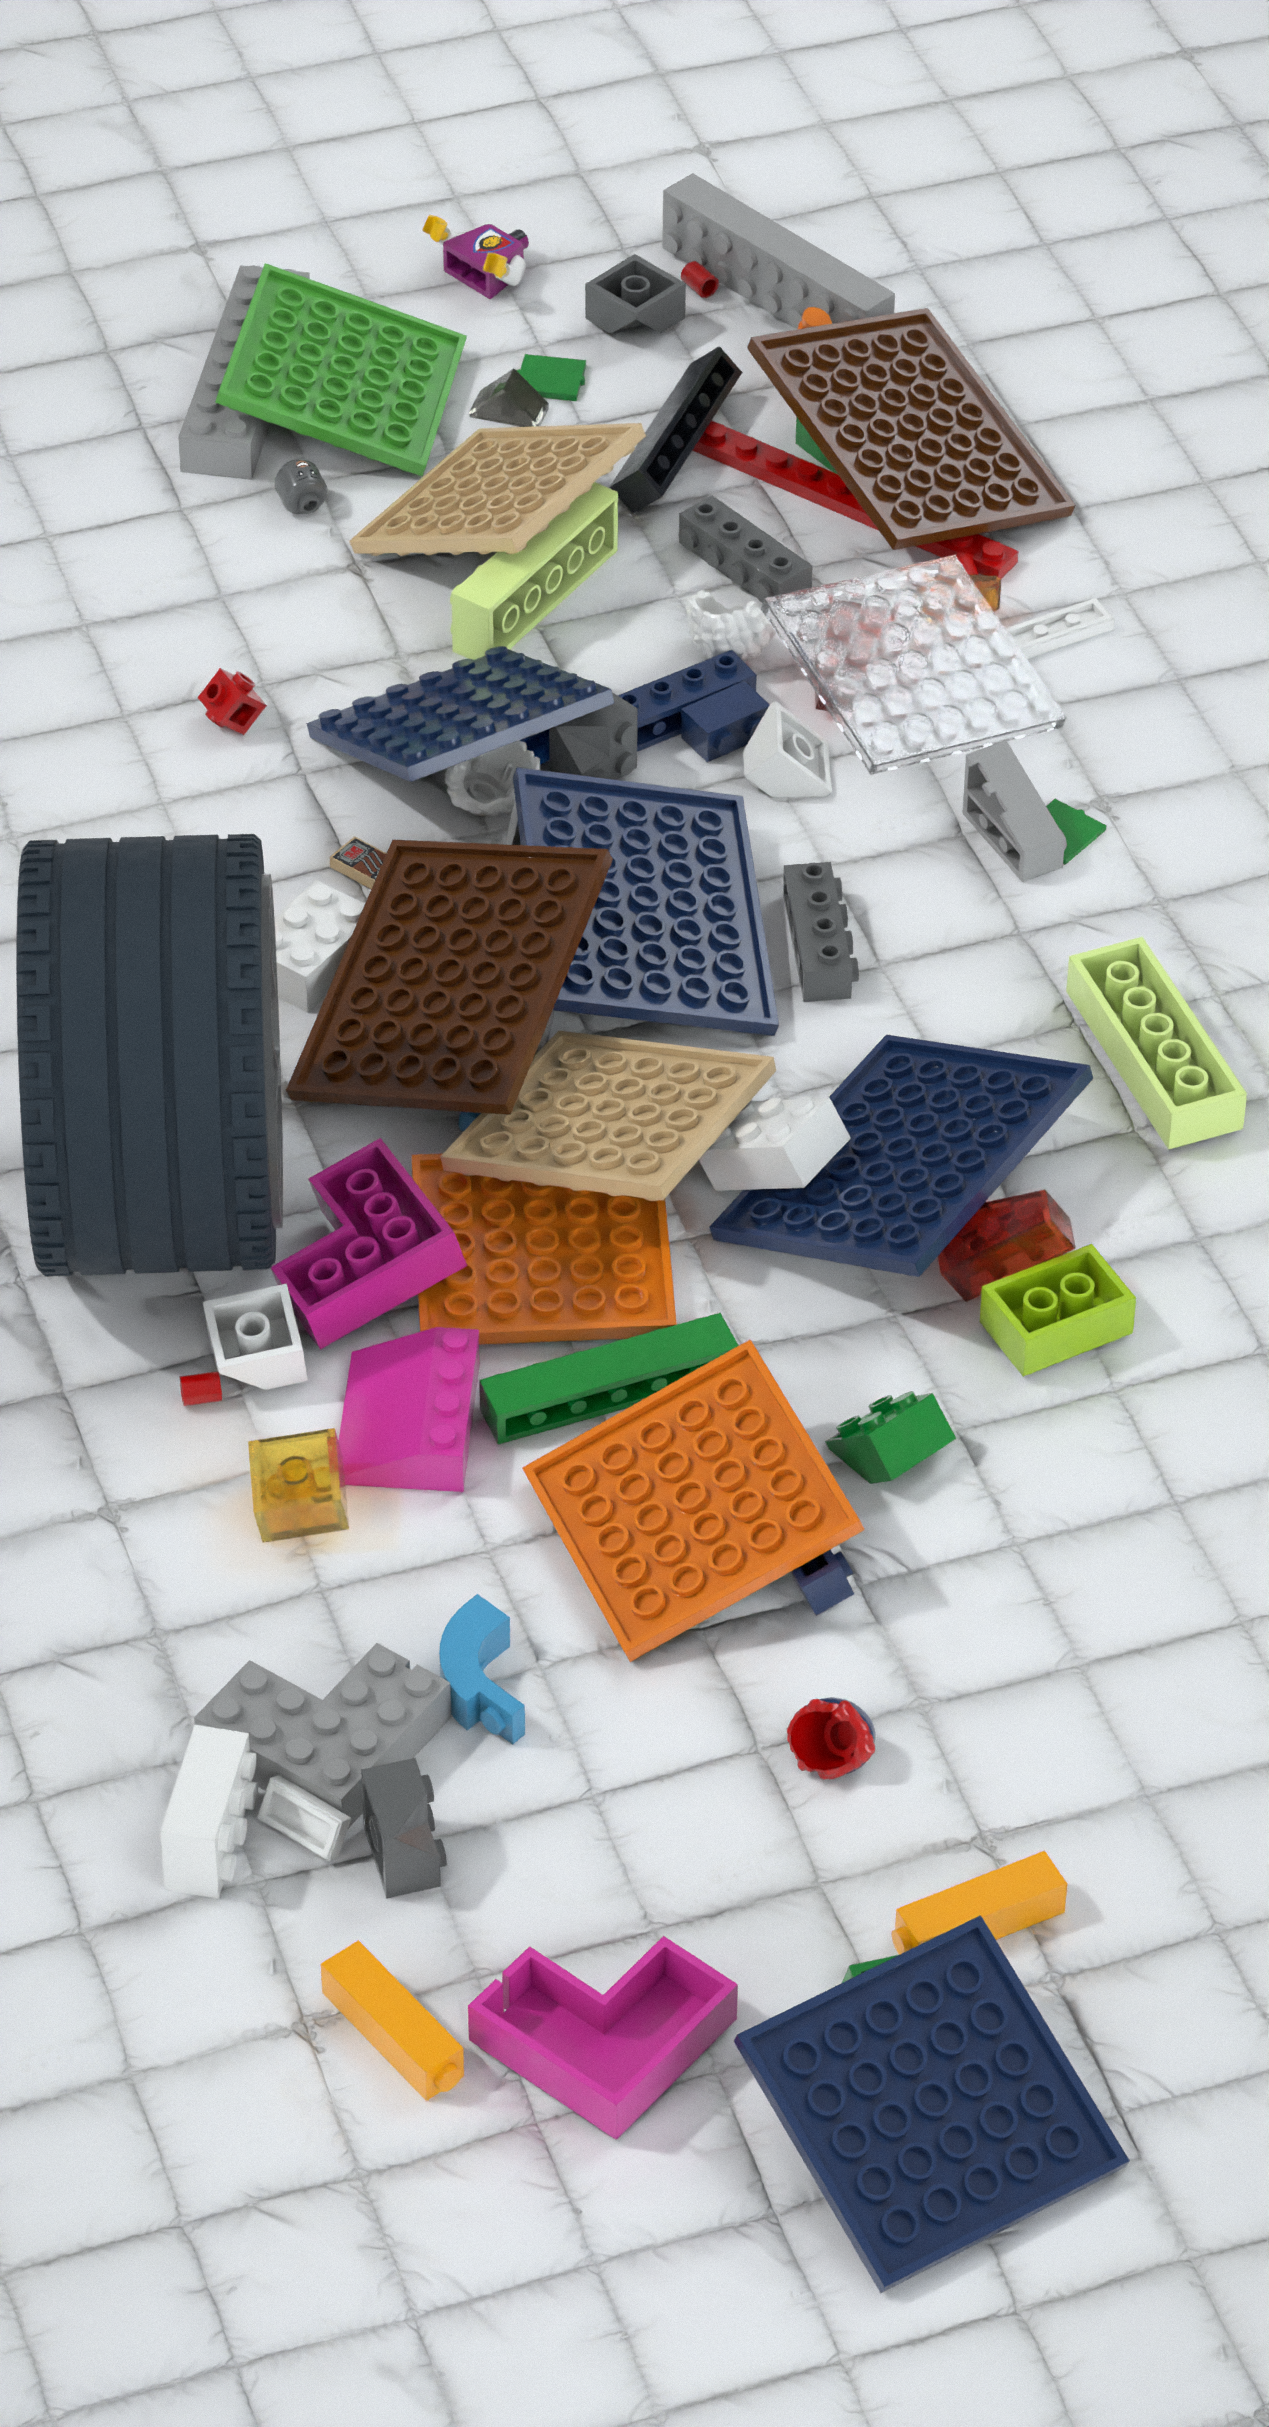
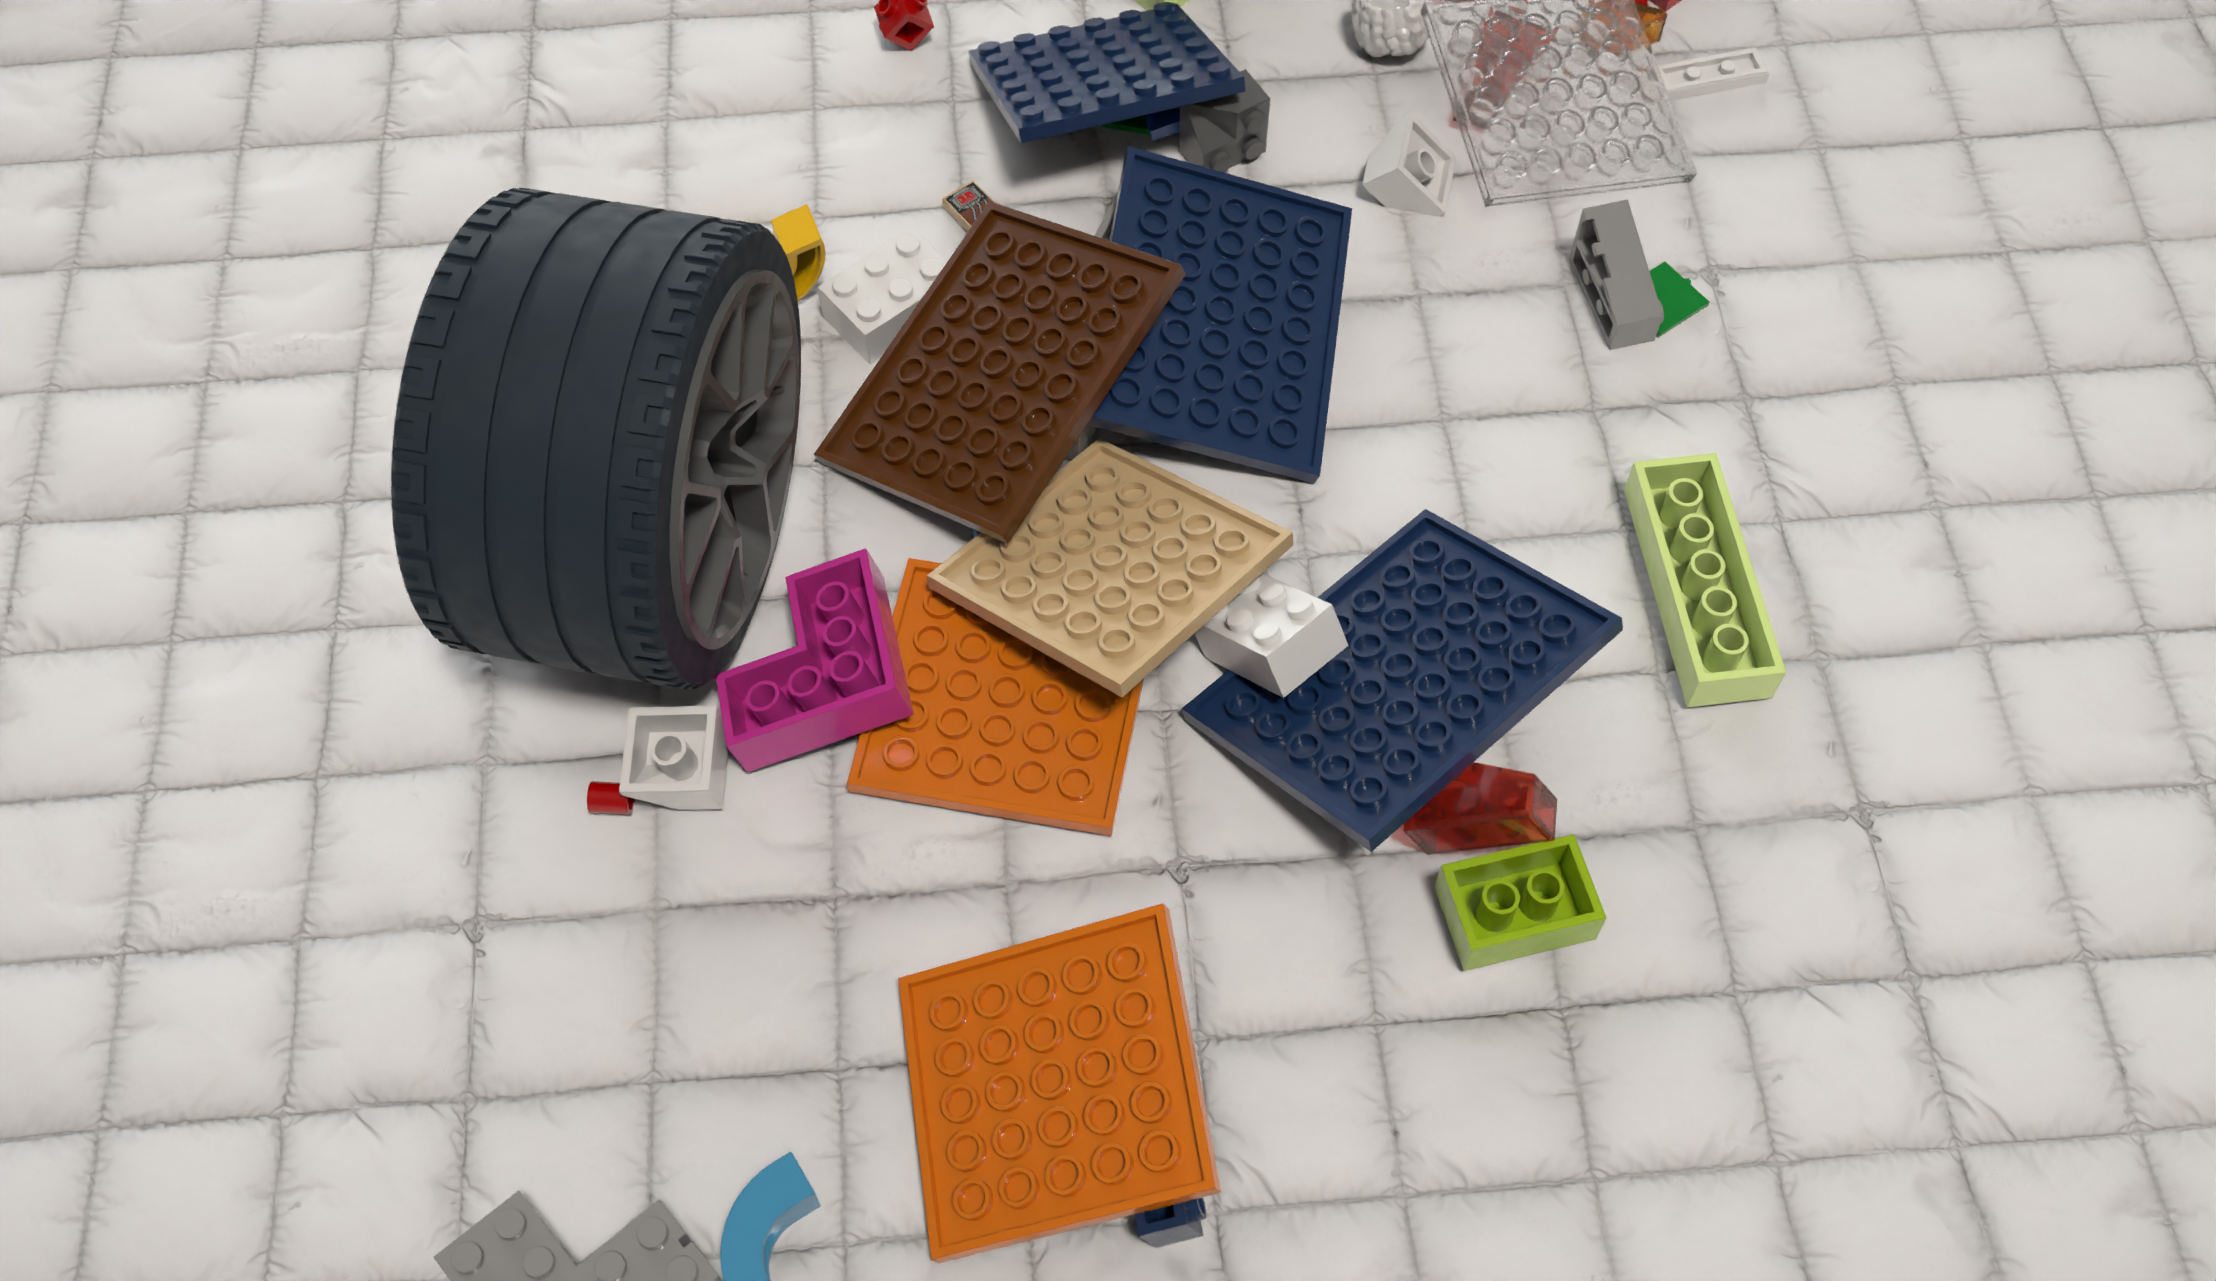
camera: 15 degrees right, 15 degrees up
(298, 1485) = (656, 955): clear yellow brick -> none
(411, 1411) = (809, 878): dark pink slope -> none
(486, 781) = (1103, 147): white hair -> none
(598, 1378) = (1023, 879): green brick -> none
(661, 700) = (1331, 89): dark blue brick -> none
(722, 721) = (1359, 118): dark blue brick -> none
(818, 931) = (1388, 374): dark grey brick -> none
(892, 1436) = (1299, 1029): green slope -> none

